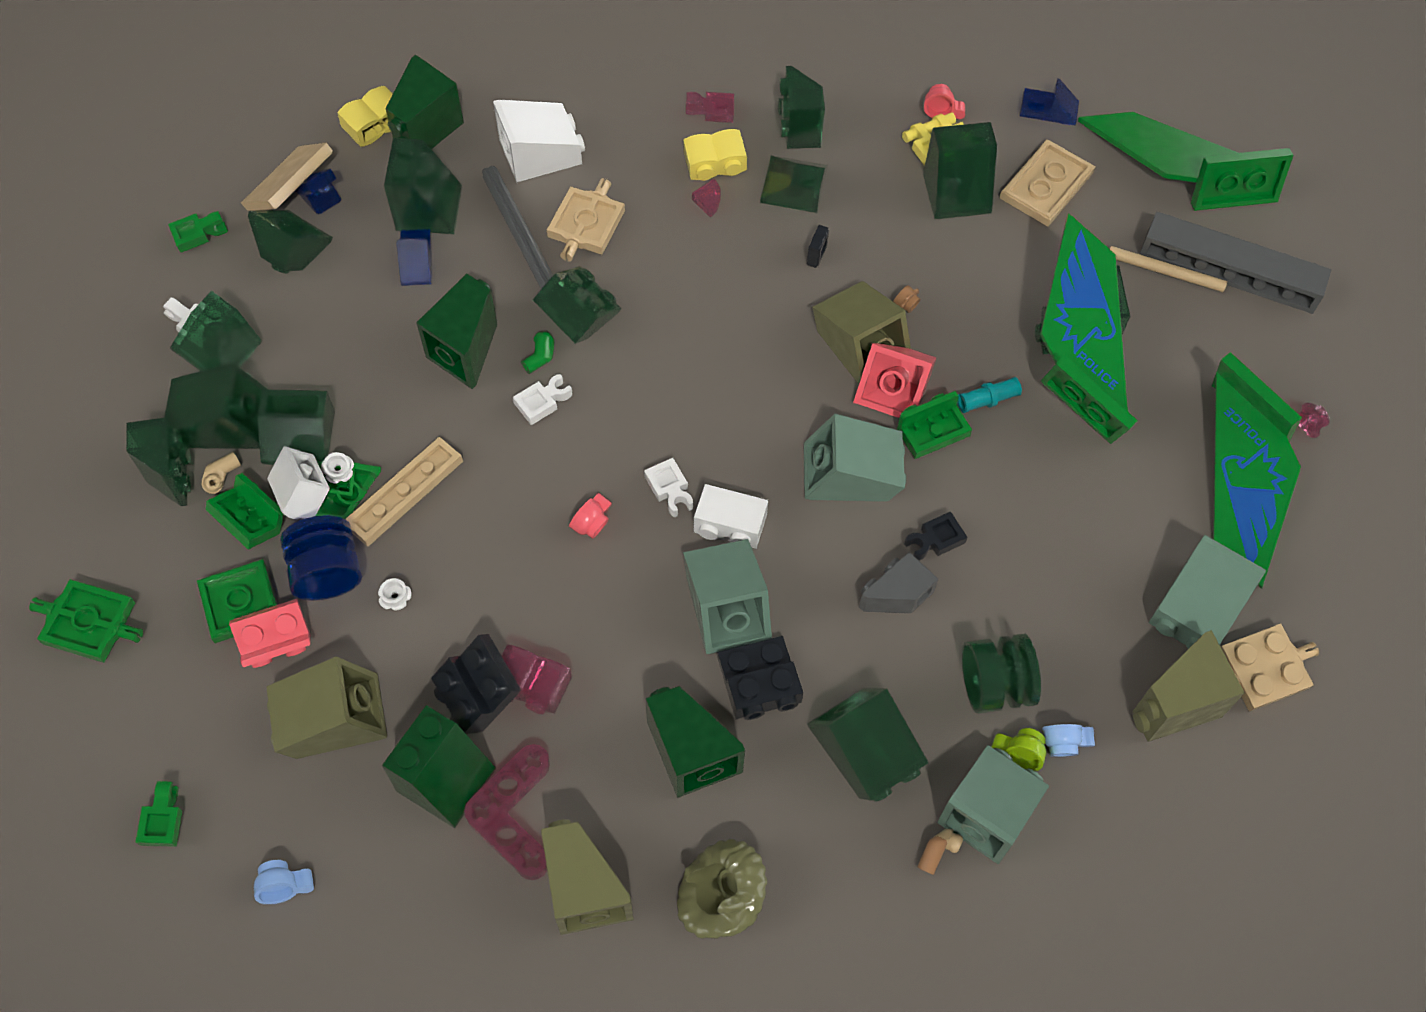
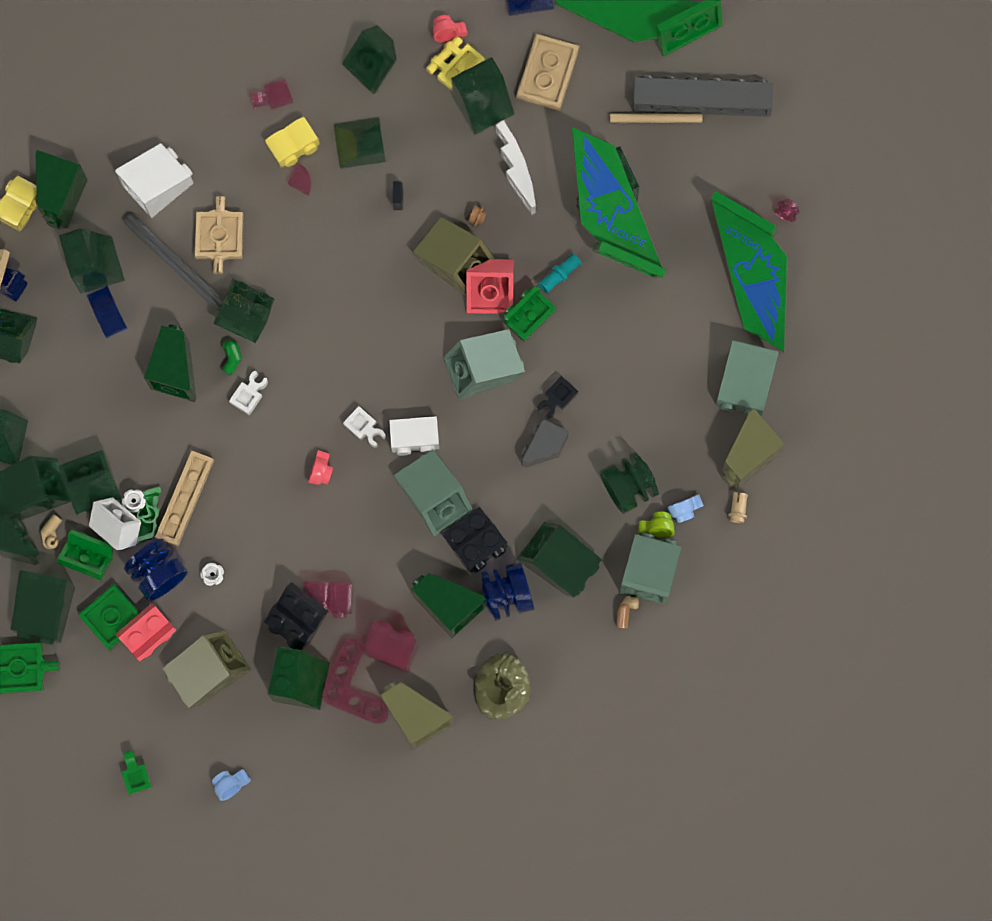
camera: 15 degrees left, 15 degrees up
(155, 551) = (41, 607): none -> clear green slope
(587, 772) = (390, 646): none -> clear pink slope
(779, 757) = (507, 591): none -> clear blue wheel
(802, 110) = (344, 82): clear green slope -> none
(845, 99) = (371, 58): none -> clear green slope
(975, 262) = (518, 173): none -> white slope
(1142, 772) = (738, 508): none -> tan pin
(1269, 666) = (799, 410): tan plate -> none

